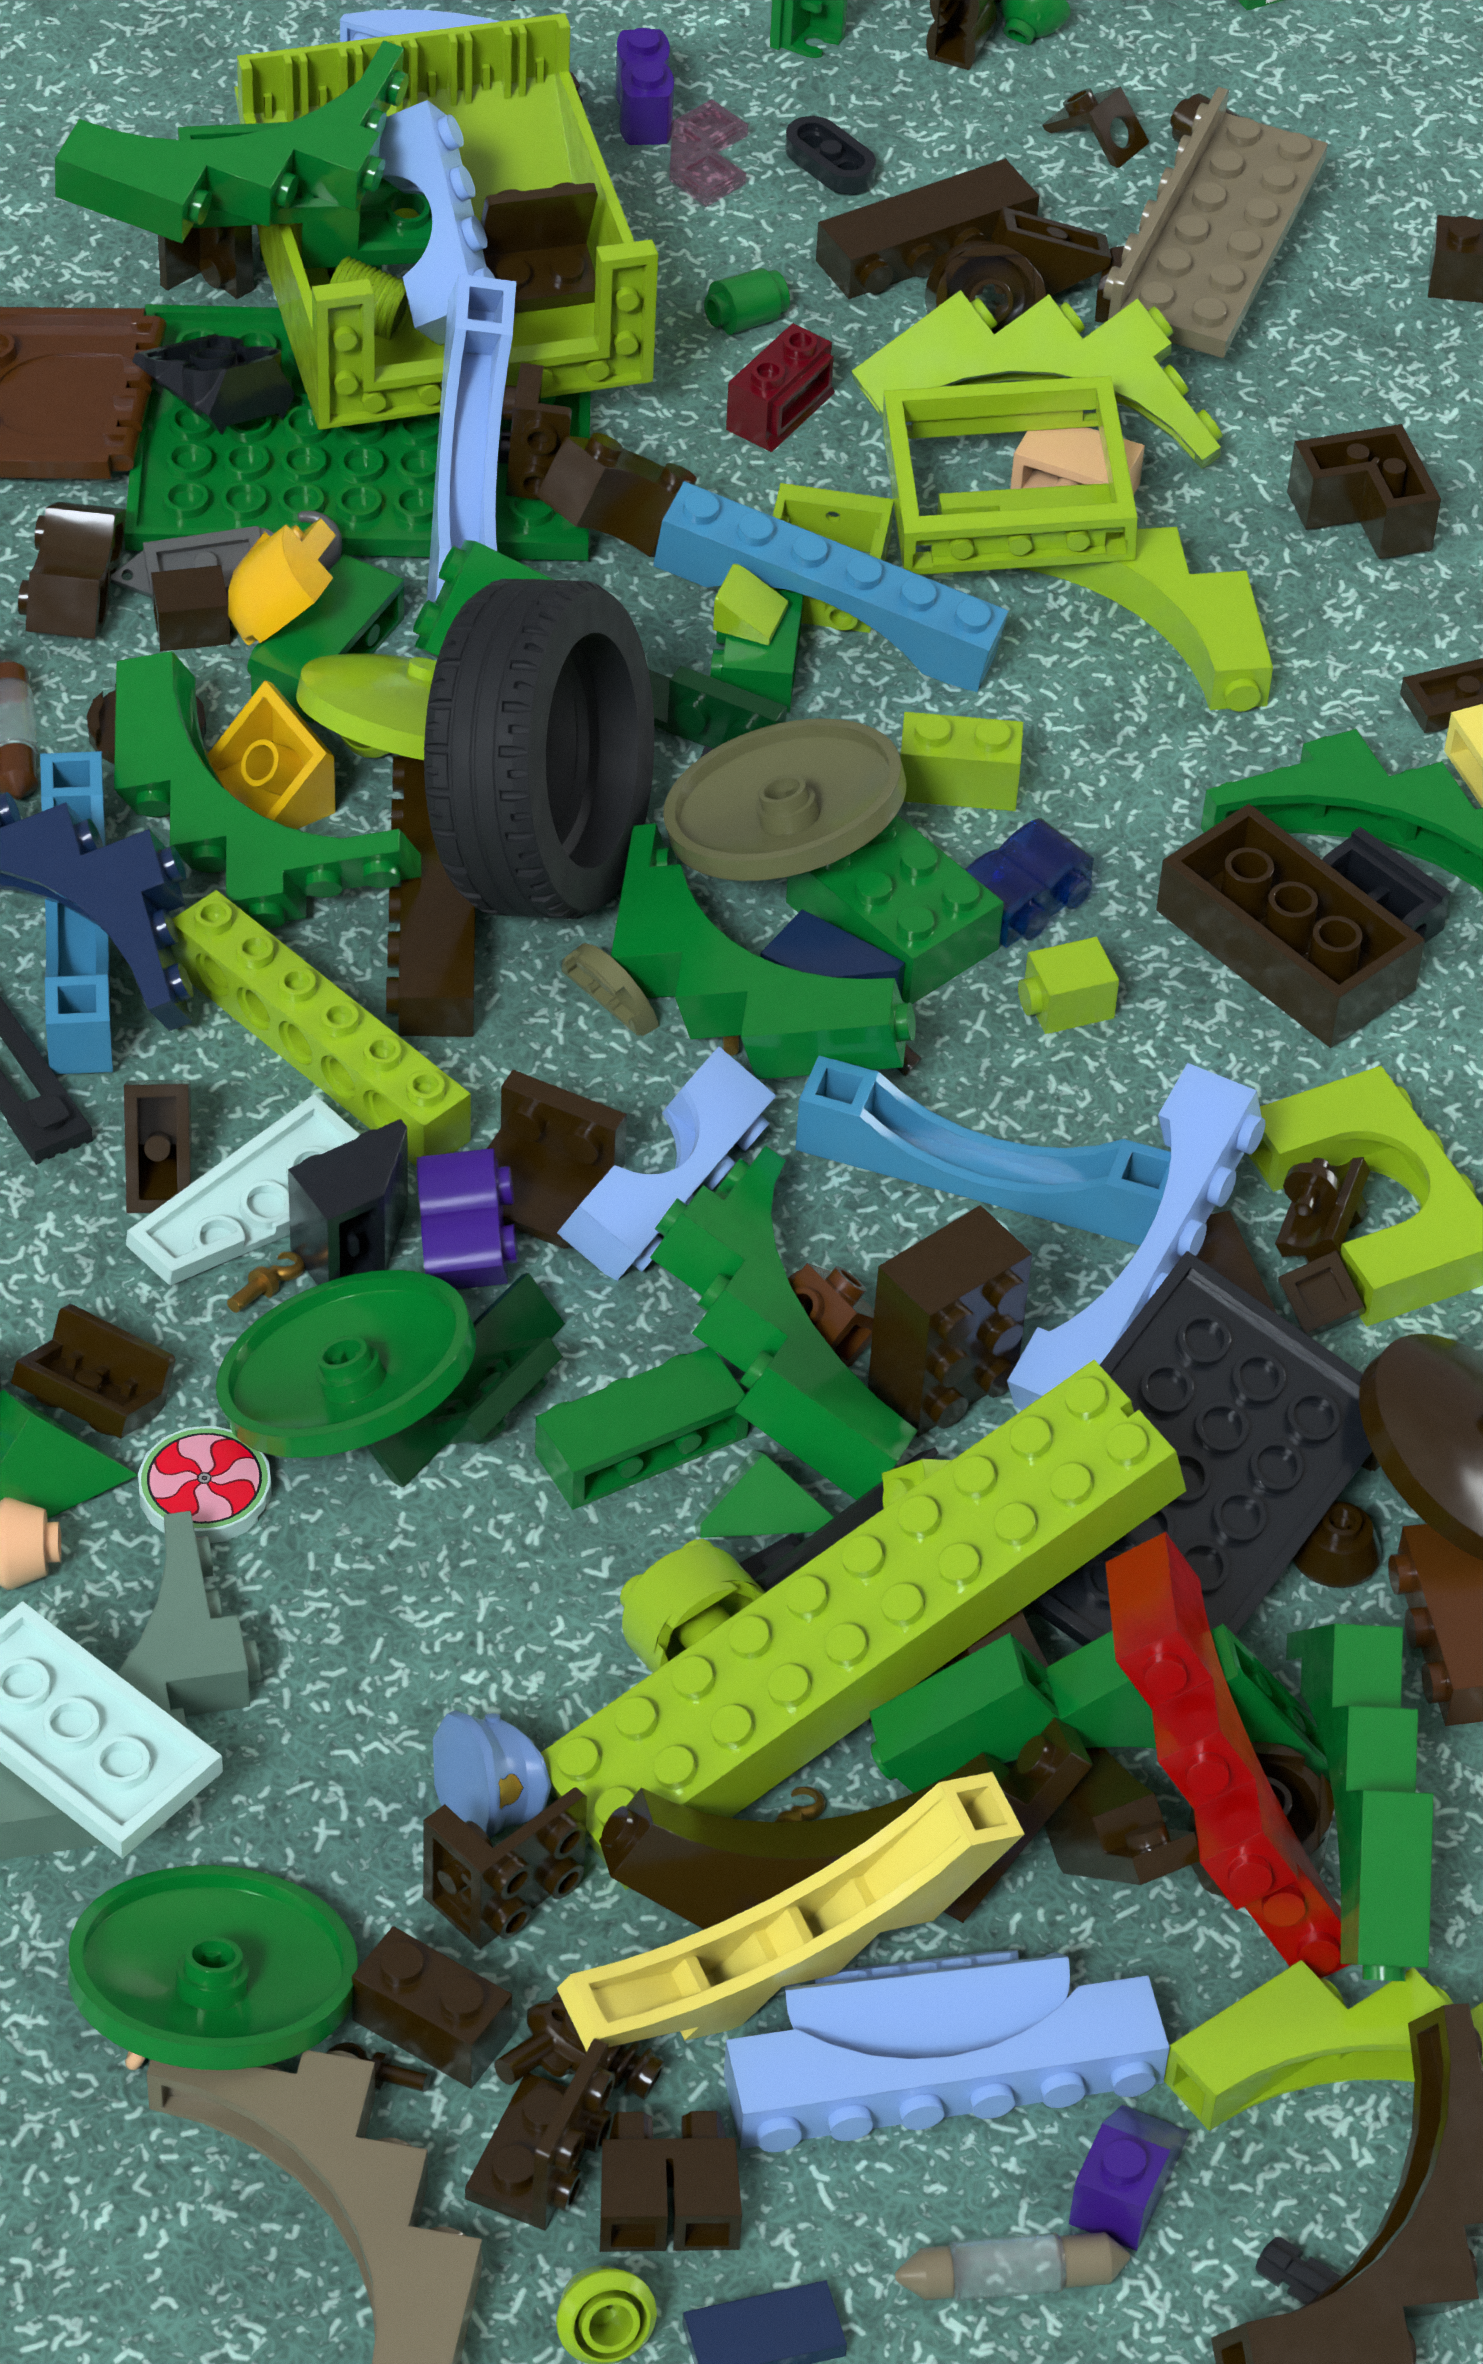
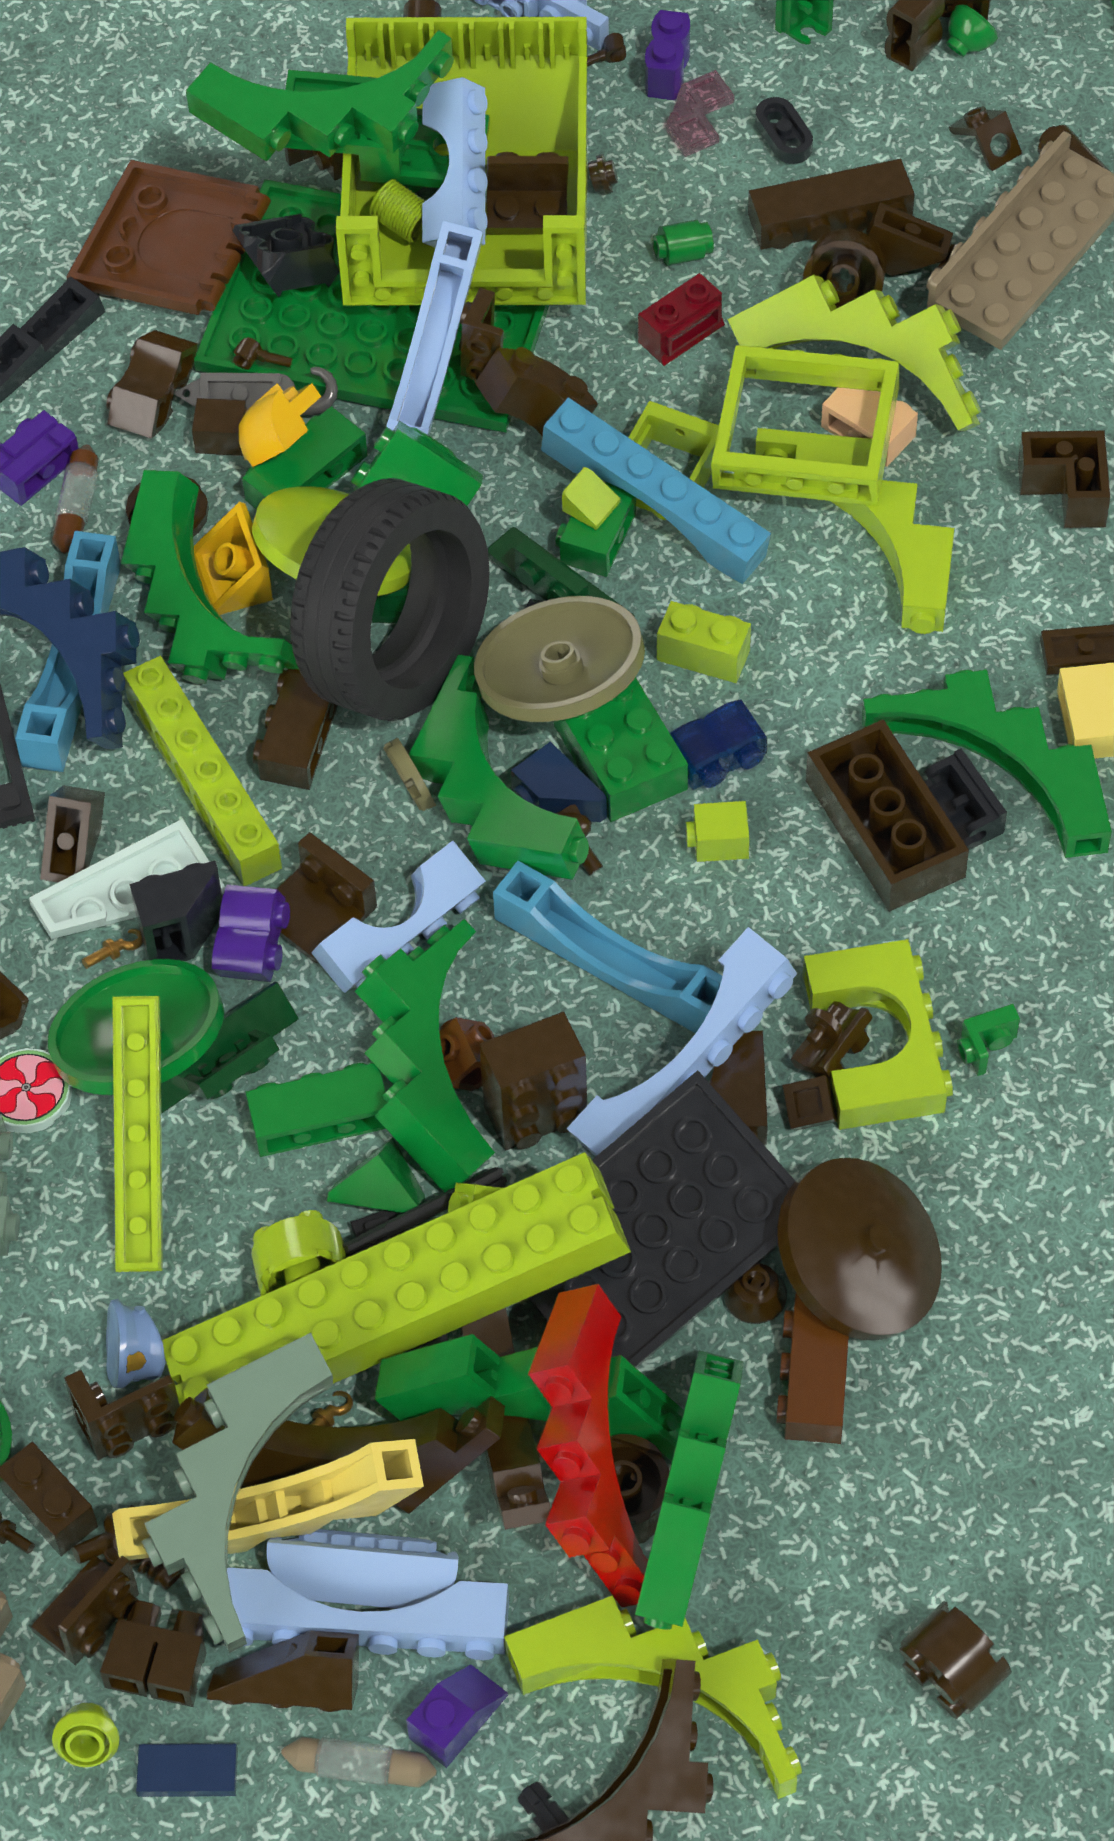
camera: 20 degrees right, 10 degrees up
(205, 505) = (250, 350): none -> dark brown hand
(408, 1492) = (137, 1134): none -> lime tile
(695, 1892) = (251, 1407): none -> sand green arch
(891, 2157) = (302, 1671): none -> dark brown slope

